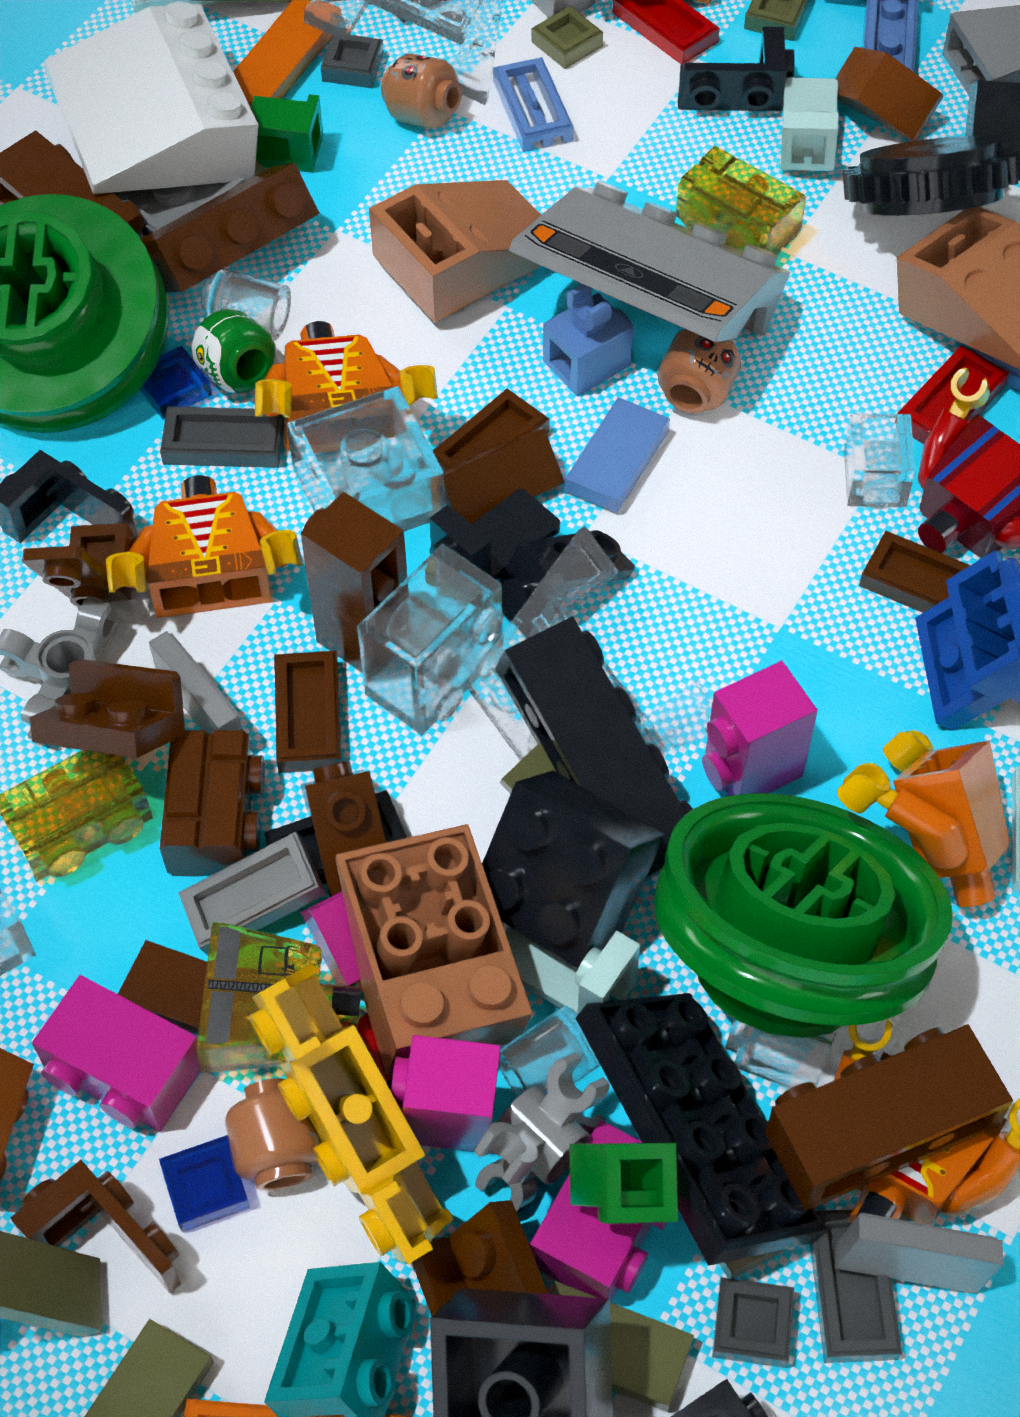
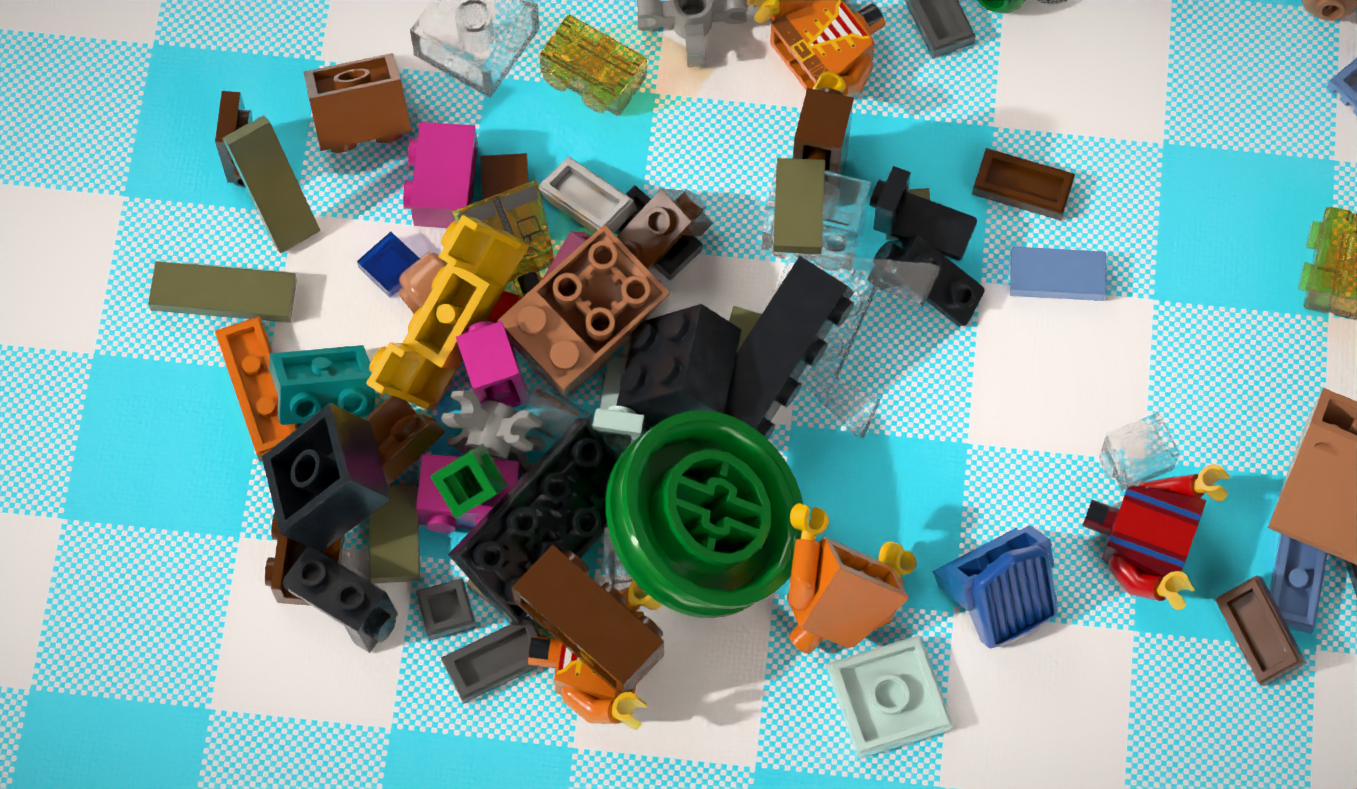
camera: 65 degrees right, 10 degrees up
(64, 1205) = (336, 193): reddish brown bracket -> none
(114, 710) = (655, 52): reddish brown bracket -> none
(199, 694) = (712, 96): light grey tile -> none
(209, 802) = (637, 142): reddish brown brick -> none
(307, 710) = (738, 169): reddish brown tile -> none
(332, 371) = (1000, 57): torso -> none
(372, 454) = (939, 112): clear brick -> none
(438, 623) = (799, 206): none -> olive tile
(451, 241) = (1195, 84): nougat slope -> none
(495, 474) = (994, 205): reddish brown tile -> none
(587, 341) = (1144, 210): medium blue brick -> none
(656, 262) = (1216, 218): light grey piece -> none
(698, 372) = (1157, 295): nougat head -> none
(759, 732) = (842, 449): dark pink brick -> none
(909, 572) = (1058, 516): reddish brown tile -> none
(918, 1253) = (523, 681): light grey tile -> none
(937, 394) = (1250, 489): red tile -> none

